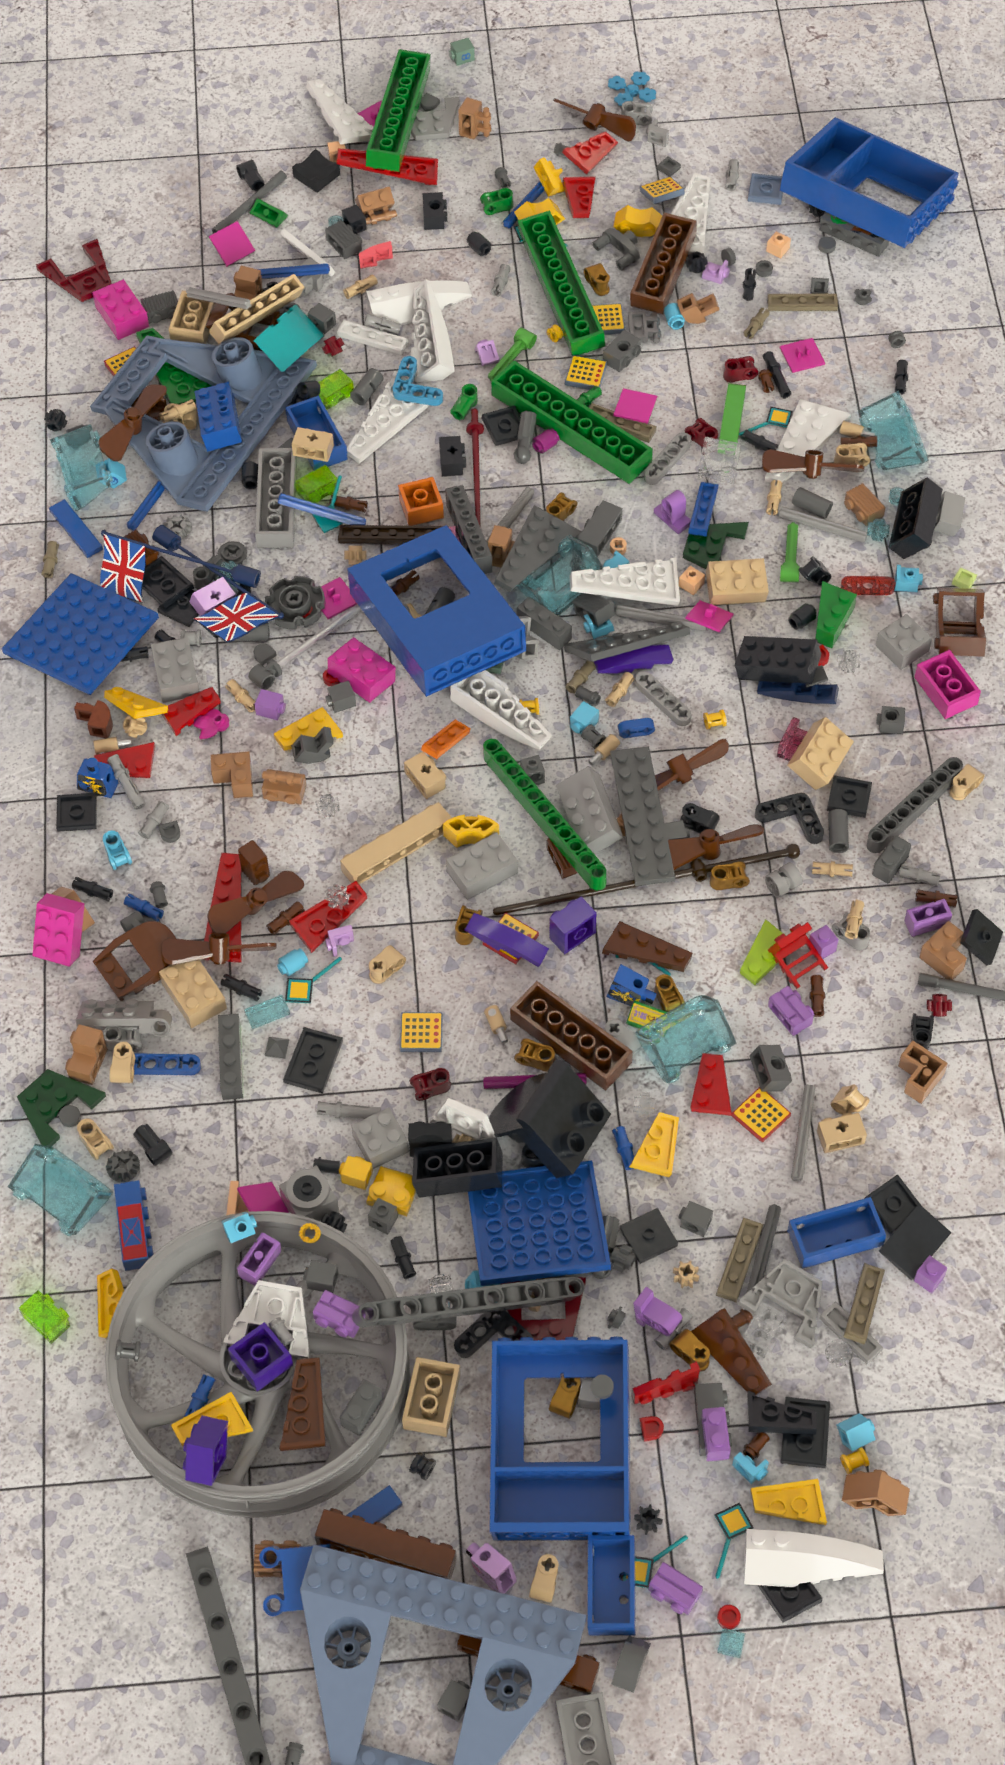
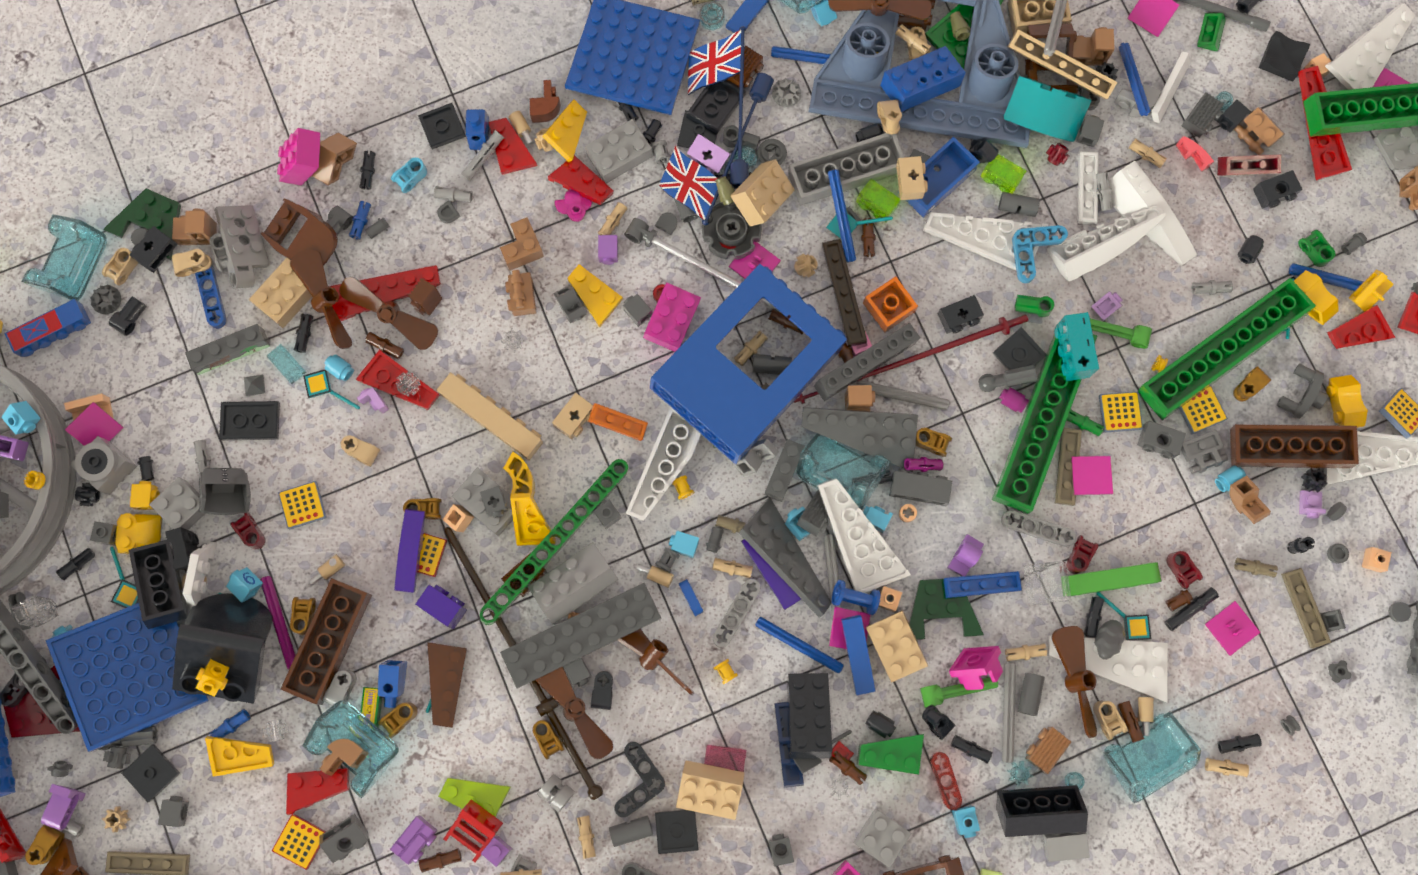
camera: 70 degrees right, 20 degrees up
(72, 556) = (709, 9): none -> clear light blue wheel
(87, 1087) = (161, 245): none -> black brick
(181, 376) = (959, 26): none -> olive cone
(243, 446) = (889, 115): none -> tan piece
(258, 588) = (724, 190): none -> olive cone
(274, 559) = (762, 193): none -> tan brick
(383, 1091) = (224, 491): none -> dark grey piece
(404, 220) = (1249, 165): none -> brick
(452, 1218) = (126, 592): none -> piece
(485, 1097) = (244, 584): none -> medium azure brick
(488, 844) = (488, 497): none -> dark grey brick
(488, 887) = (458, 518): none -> light nougat plate
(517, 832) = (528, 520): none -> yellow wing
(521, 369) = (1076, 346): none -> teal piece
(578, 1115) = (212, 678): none -> yellow brick
(579, 519) = (923, 464): none -> magenta pin
(675, 607) = (870, 601): none -> blue hose
(686, 1041) = (343, 751): none -> medium nougat brick
(709, 659) = (799, 645): none -> blue axle
(735, 611) = (858, 655): none -> blue tile
(774, 526) = (974, 663): none -> dark pink panel
(783, 434) = (1109, 639): none -> dark grey arm
(835, 648) = (848, 767): none -> reddish brown pin
(845, 559) = (971, 749): none -> black pin
(914, 398) = (1226, 767): none -> tan pin

